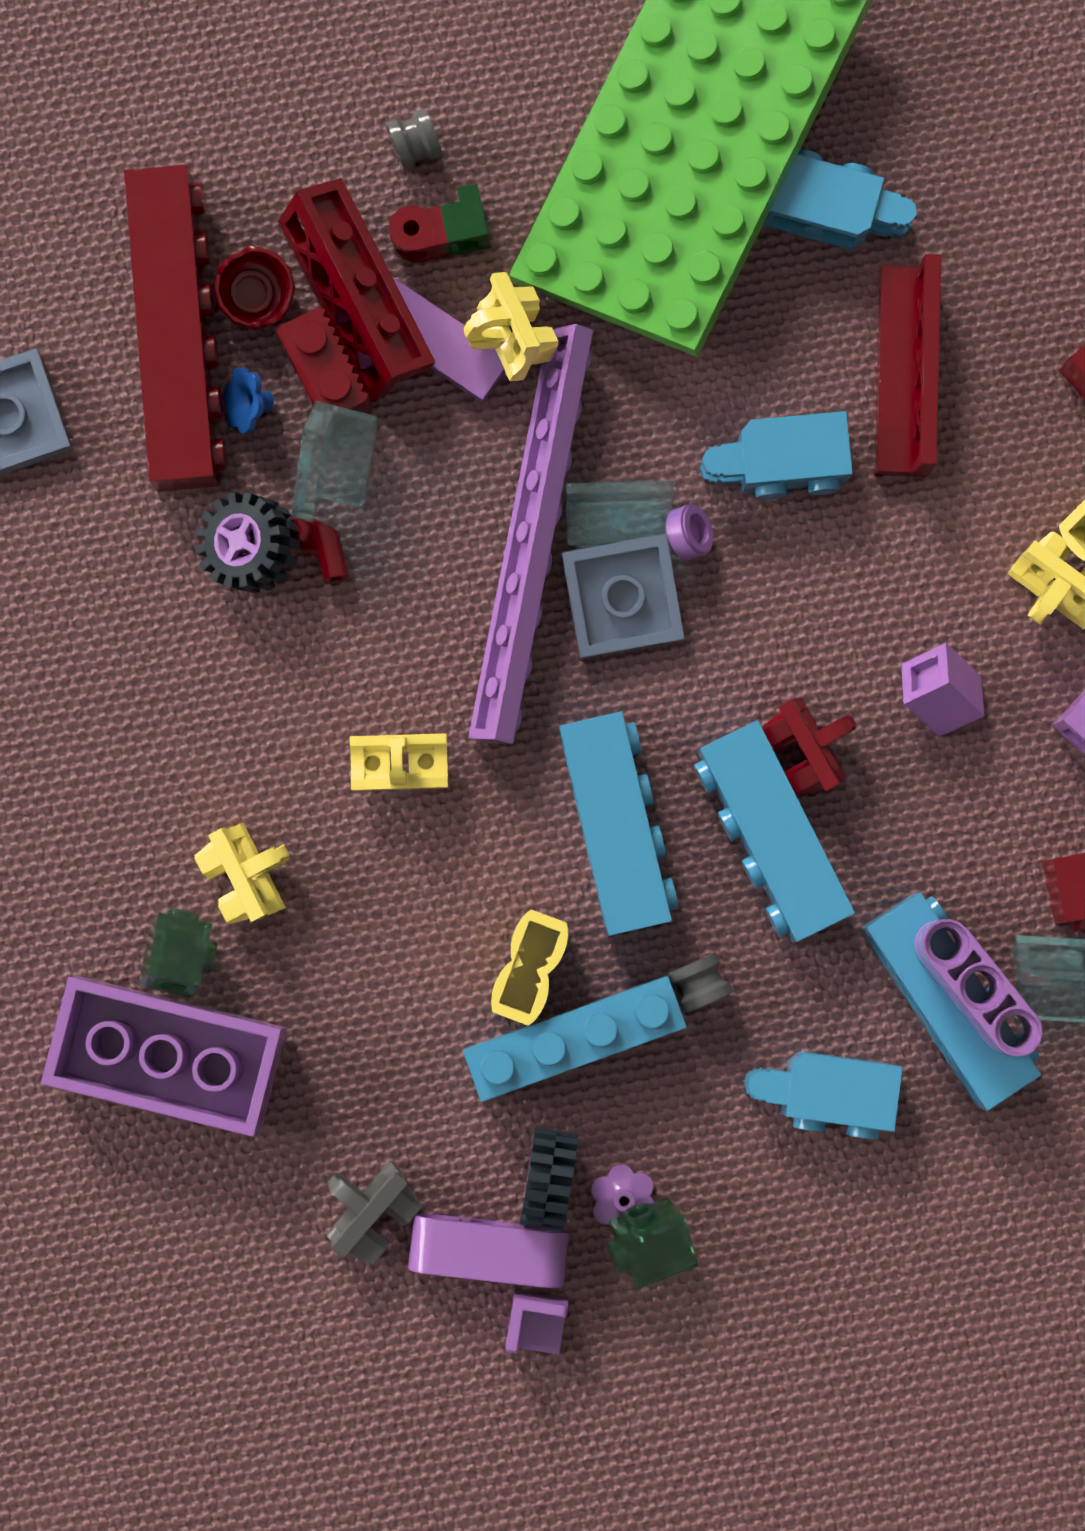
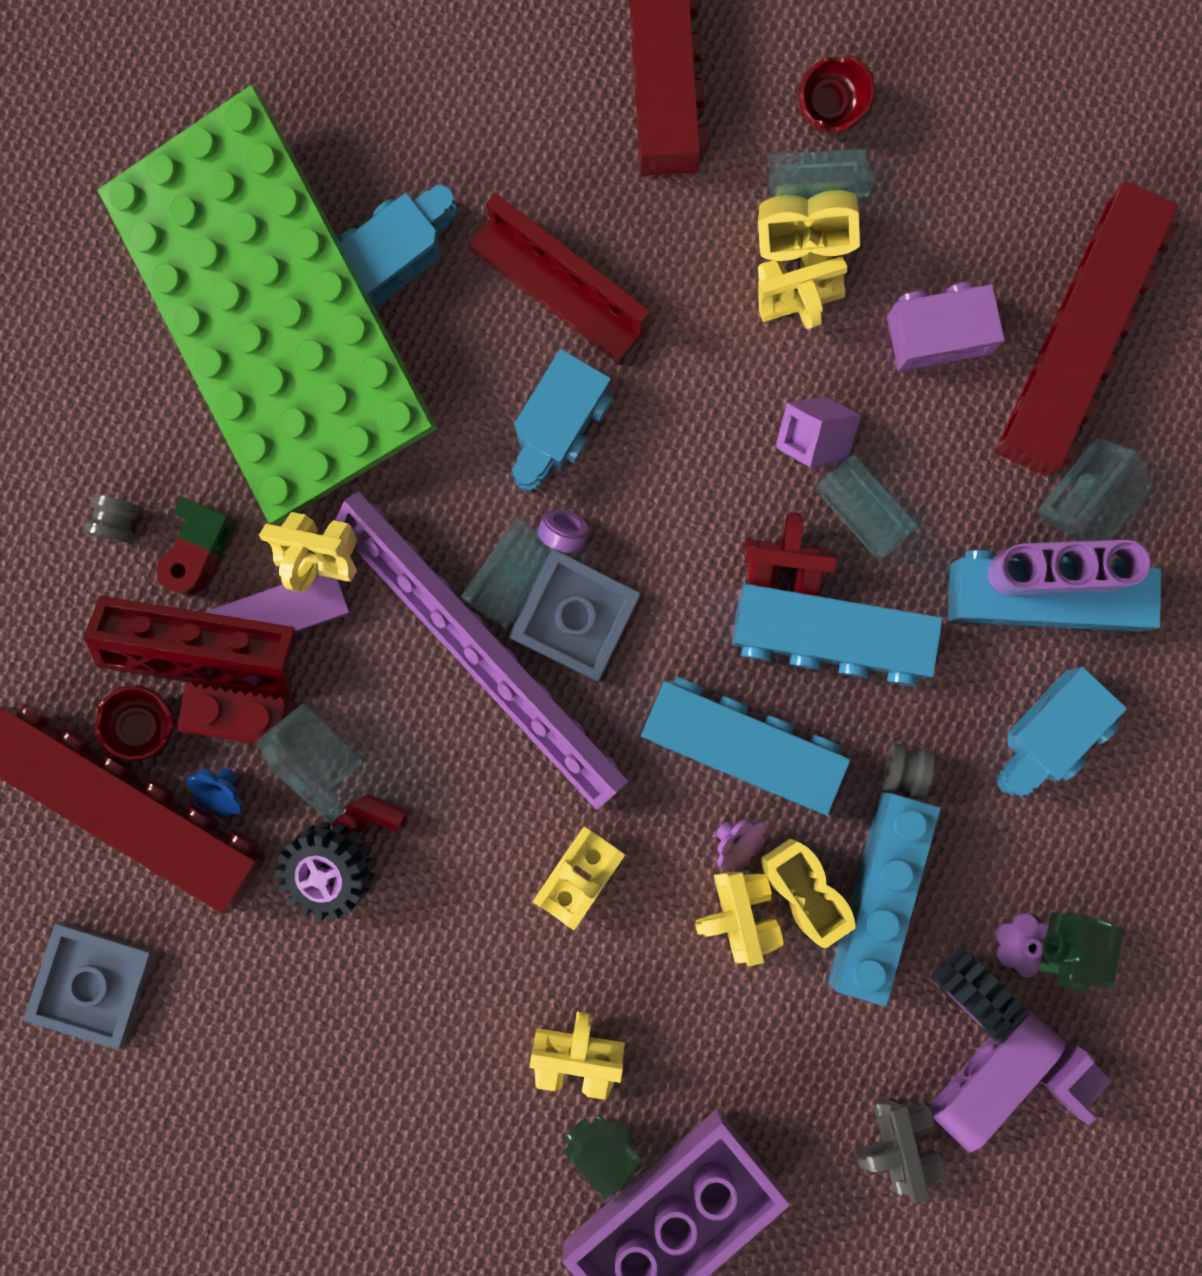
camera: 50 degrees left, 0 degrees up
(452, 946) = (747, 939): none -> light yellow hips
(529, 882) = (739, 843): none -> medium lavender plant
(907, 781) = (866, 507): none -> clear light blue panel

